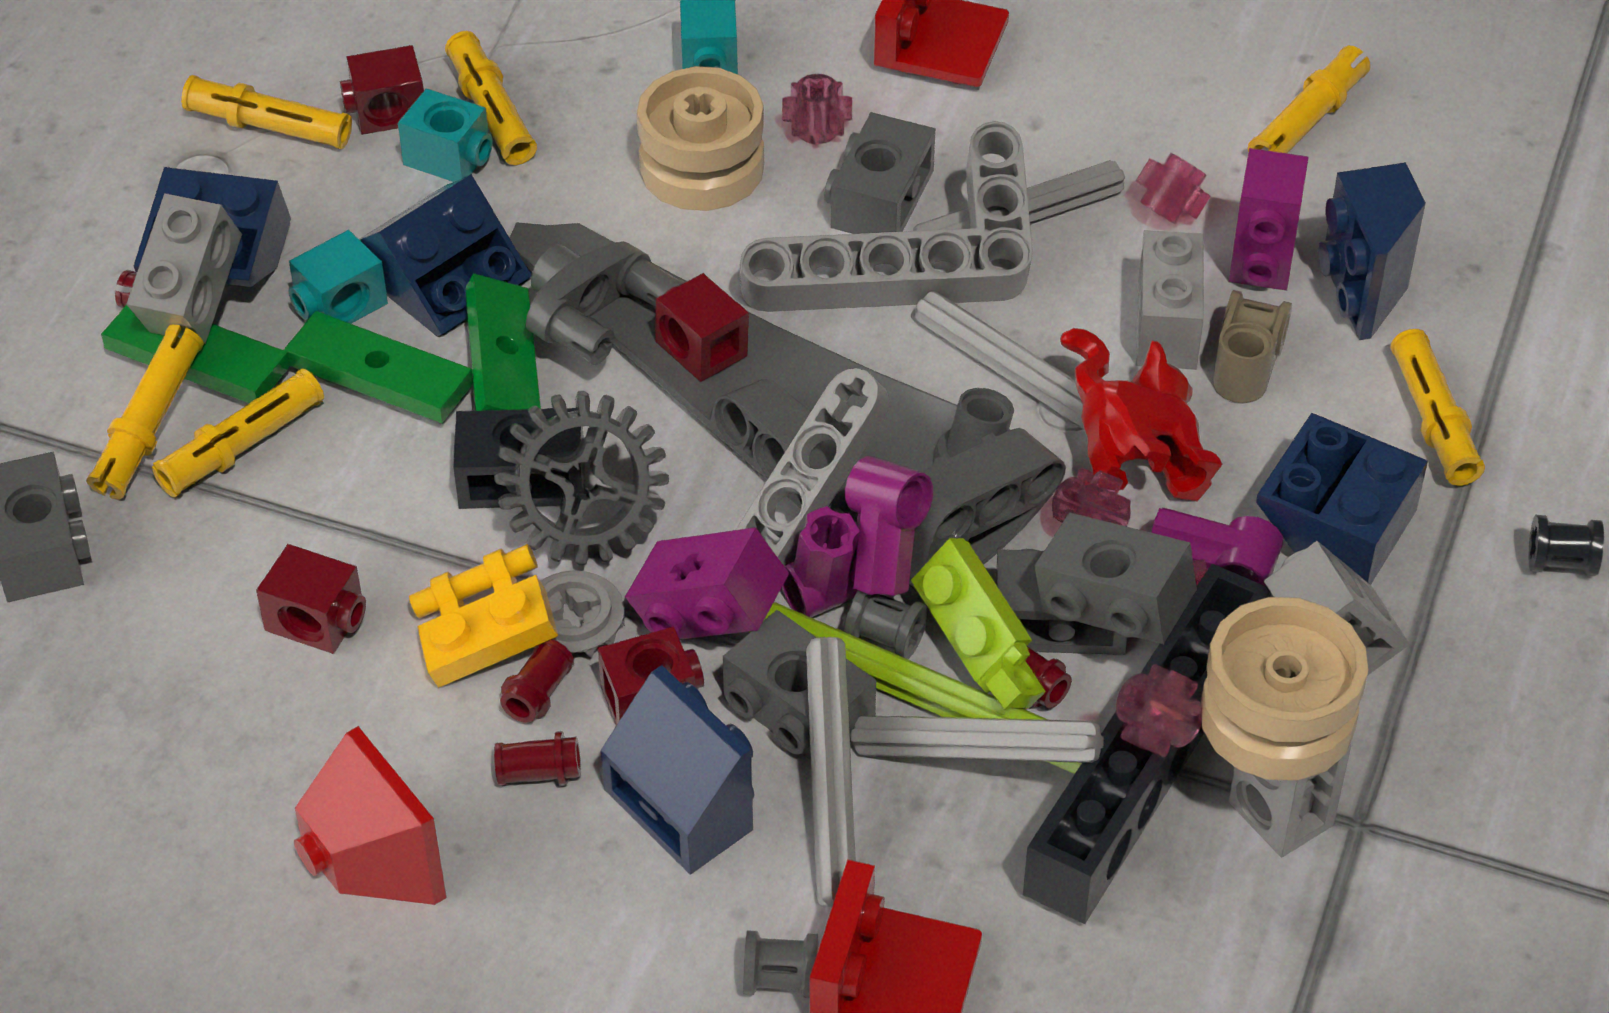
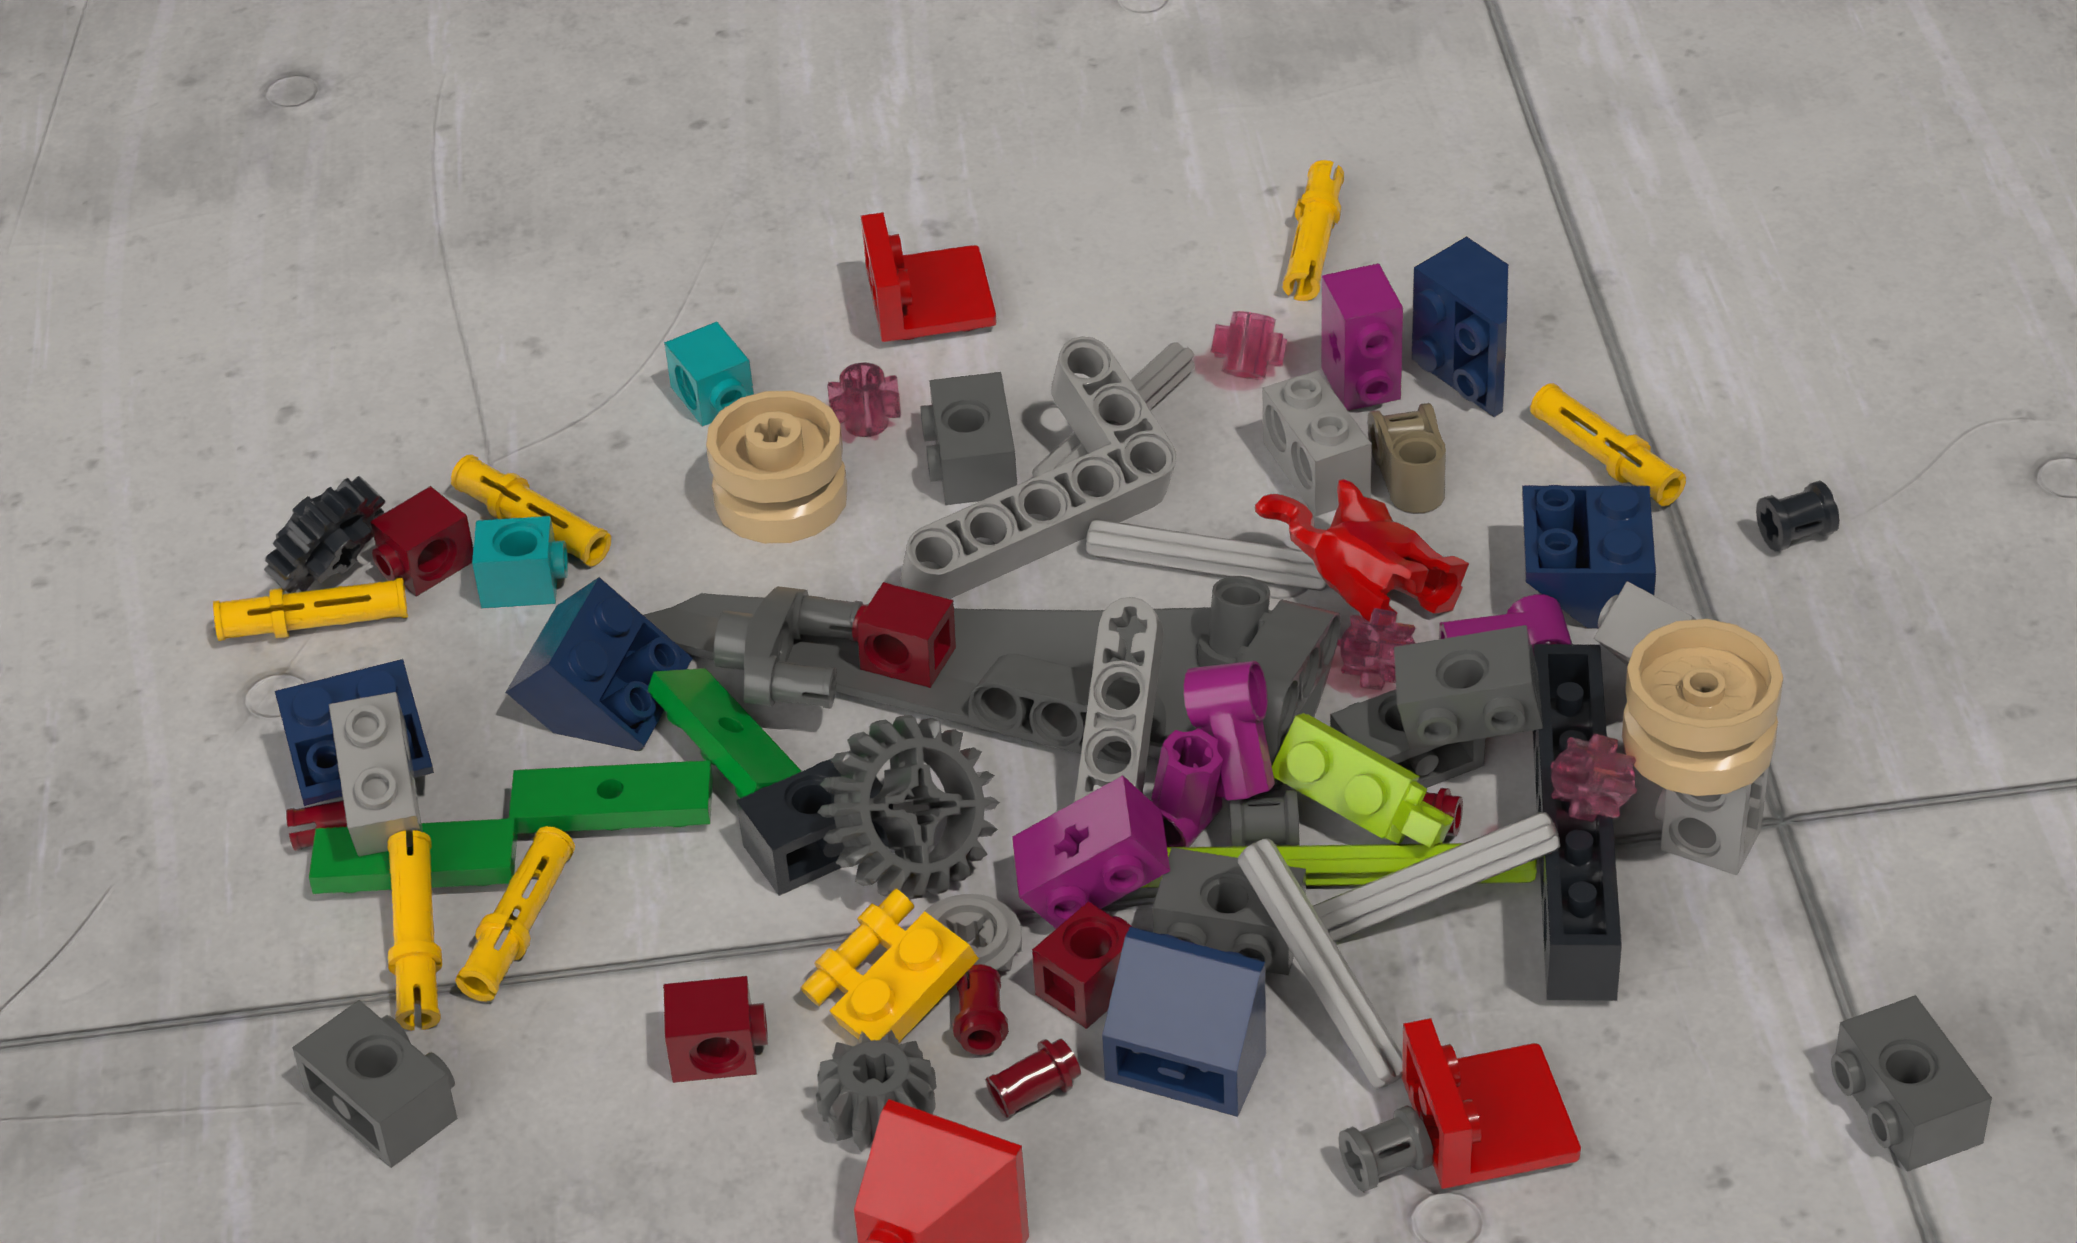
camera: 25 degrees left, 5 degrees down
(301, 53) = (324, 535): none -> black gear
(338, 280) = (512, 732): teal brick -> none
(403, 710) = (862, 1080): none -> dark grey gear

